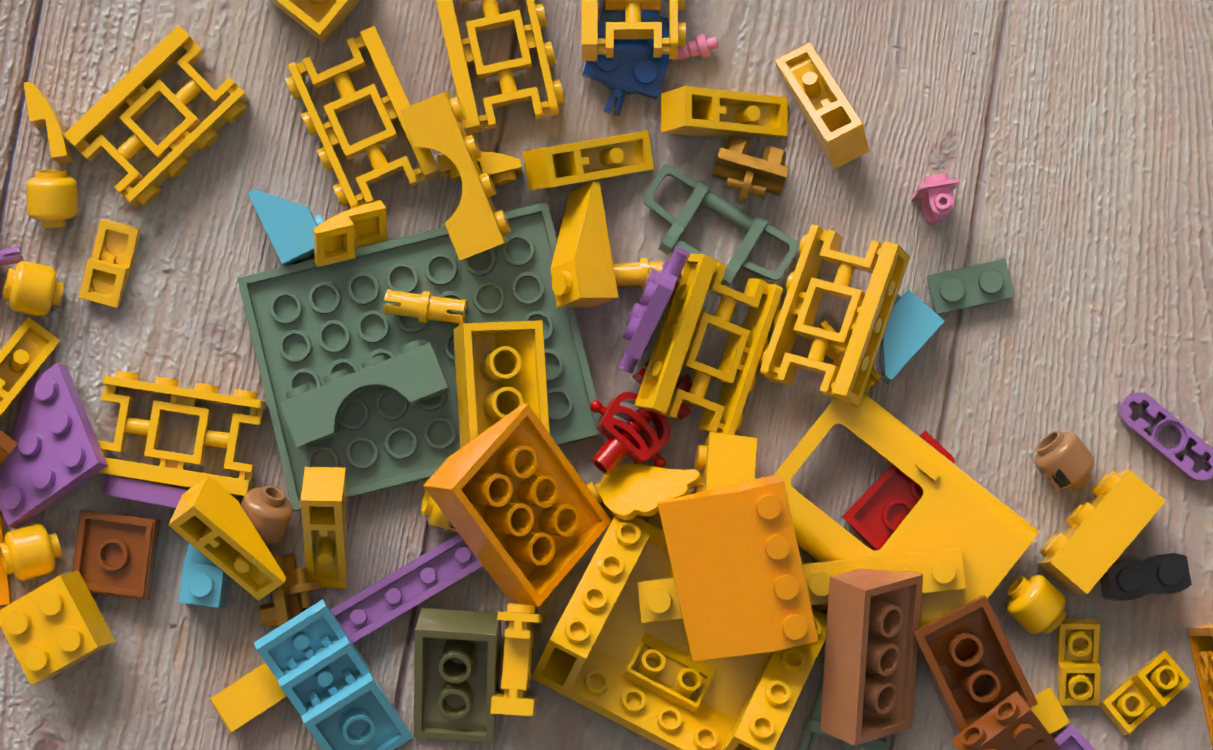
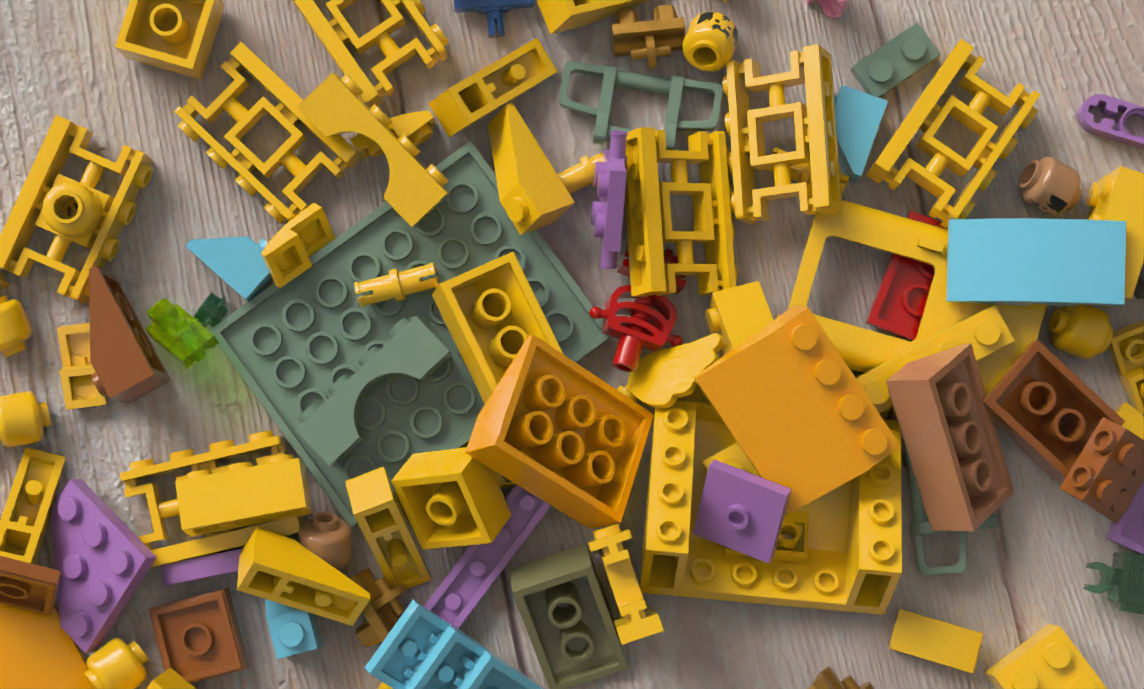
camera: 20 degrees left, 0 degrees up
(151, 262) = (118, 343): none -> dark orange slope
(153, 105) = (58, 206): none -> yellow head
(208, 442) = (243, 495): none -> yellow brick
(209, 270) = (179, 333): none -> clear neon green hips
(246, 261) = (211, 310): none -> clear green plate
(394, 522) = (451, 499): none -> yellow brick
(652, 641) = (741, 511): none -> medium lavender plate
(805, 199) = (710, 41): none -> yellow head
(977, 351) = (929, 116): none -> yellow fence
(1014, 524) = (1036, 261): none -> medium azure slope

